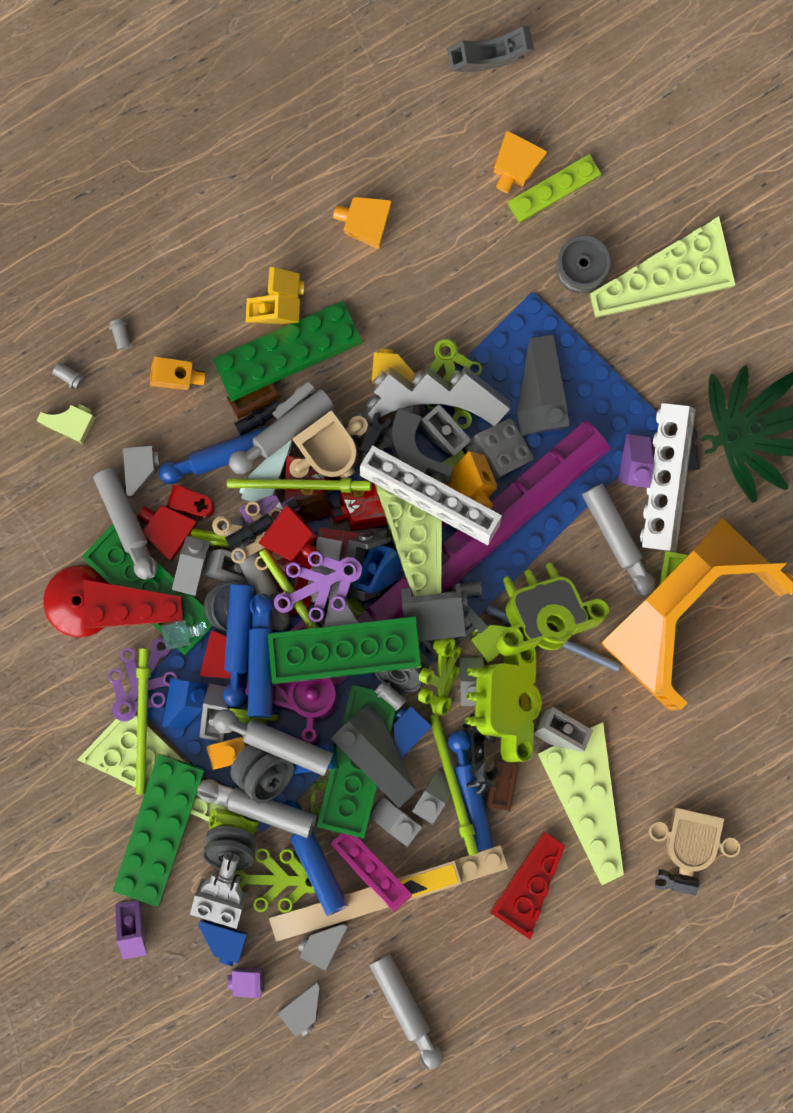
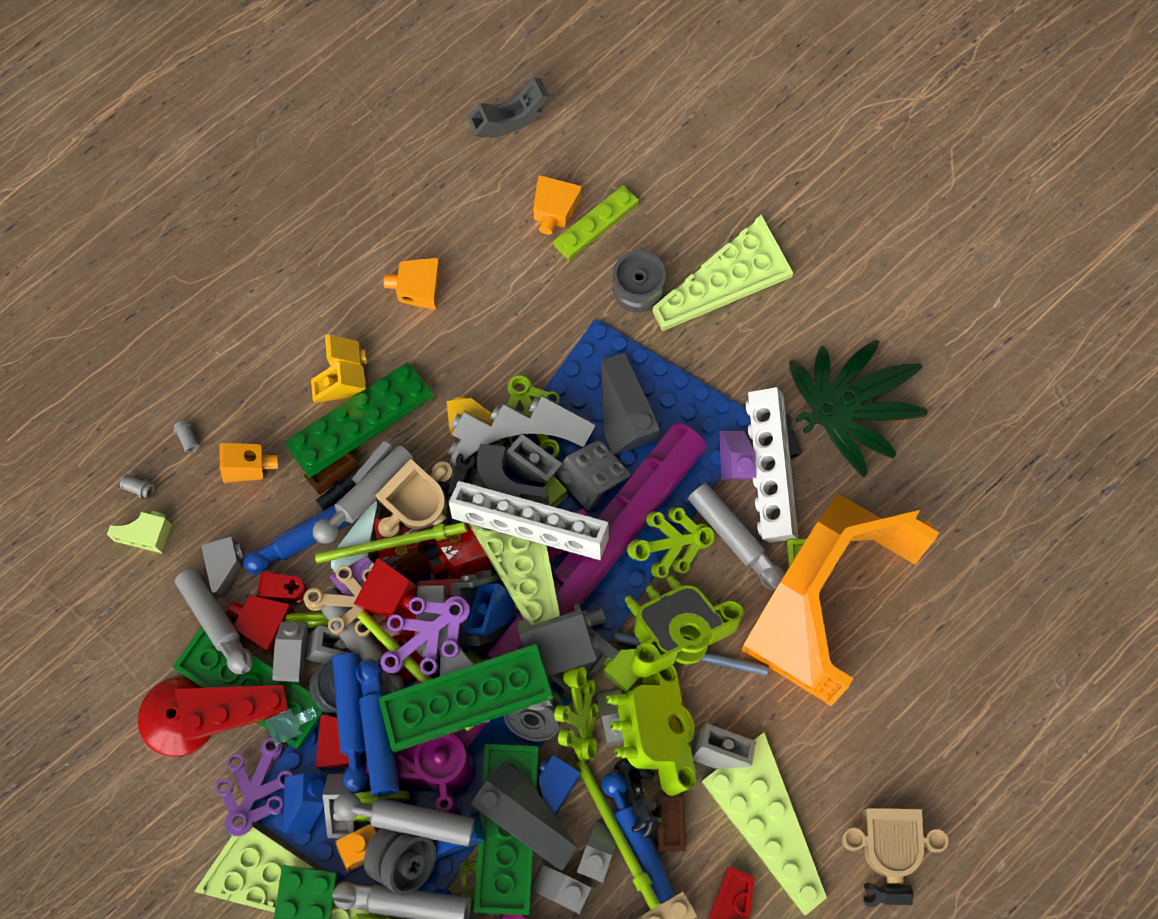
camera: 10 degrees left, 15 degrees down
(143, 672) = (253, 777): lime bar -> none
(249, 531) = (343, 597): black pin -> none
(390, 695) = (527, 746): light grey pin -> none
(474, 478) = (572, 495): light orange torso -> none
(559, 534) = (673, 543): none -> lime plant

